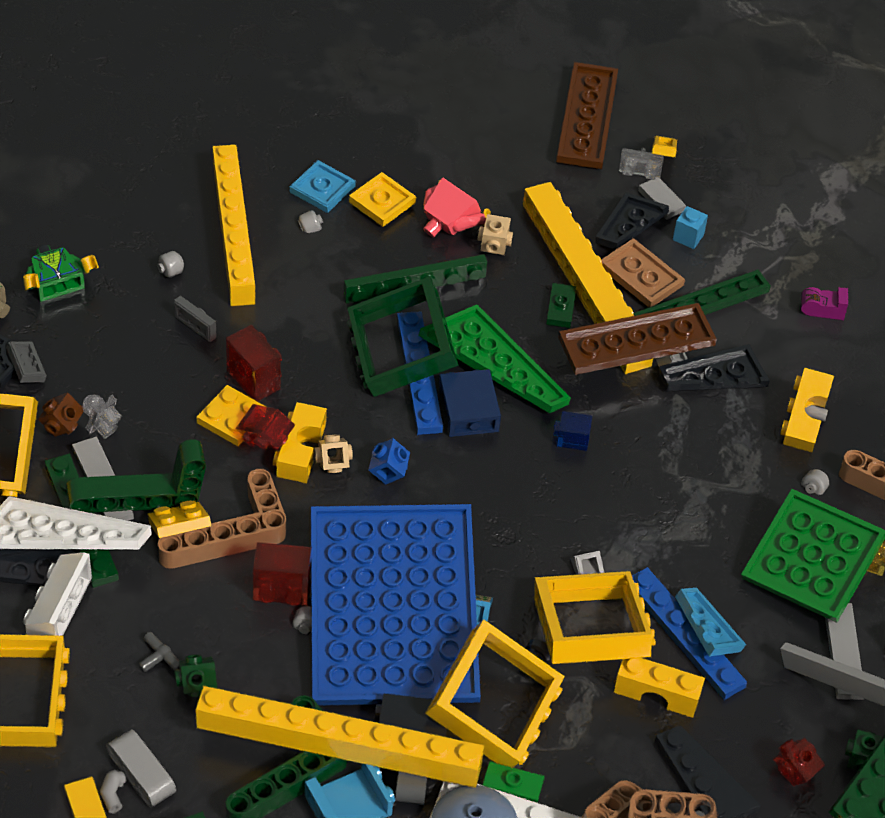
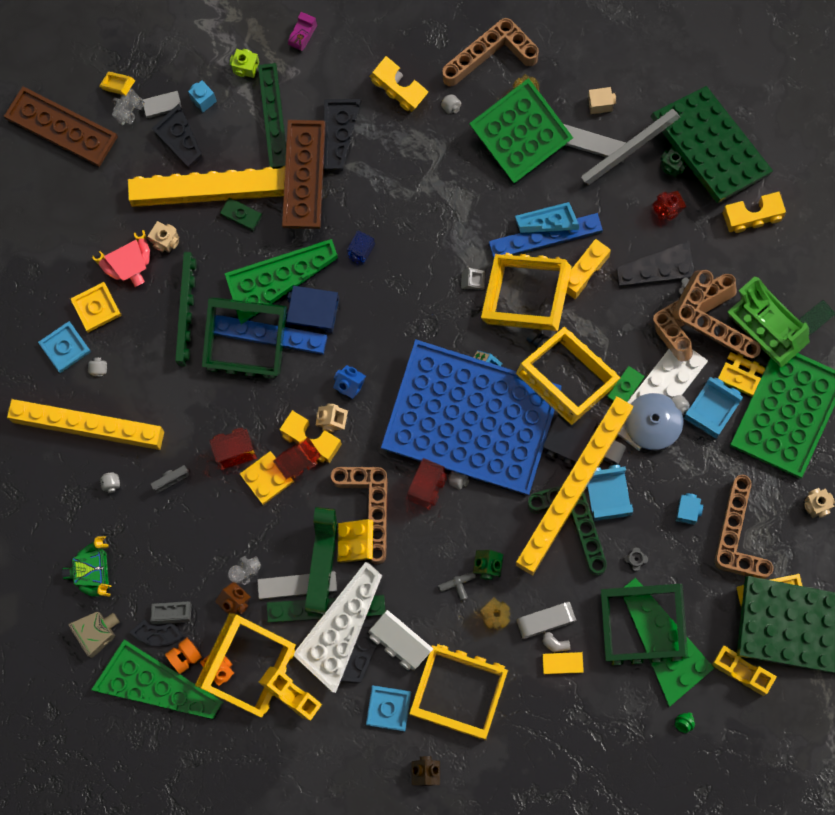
camera: 60 degrees left, 25 degrees up
(130, 701) = (493, 607): none -> clear yellow brick
(642, 273) = (231, 146): medium nougat plate -> none
(753, 254) = (244, 63): none -> lime brick

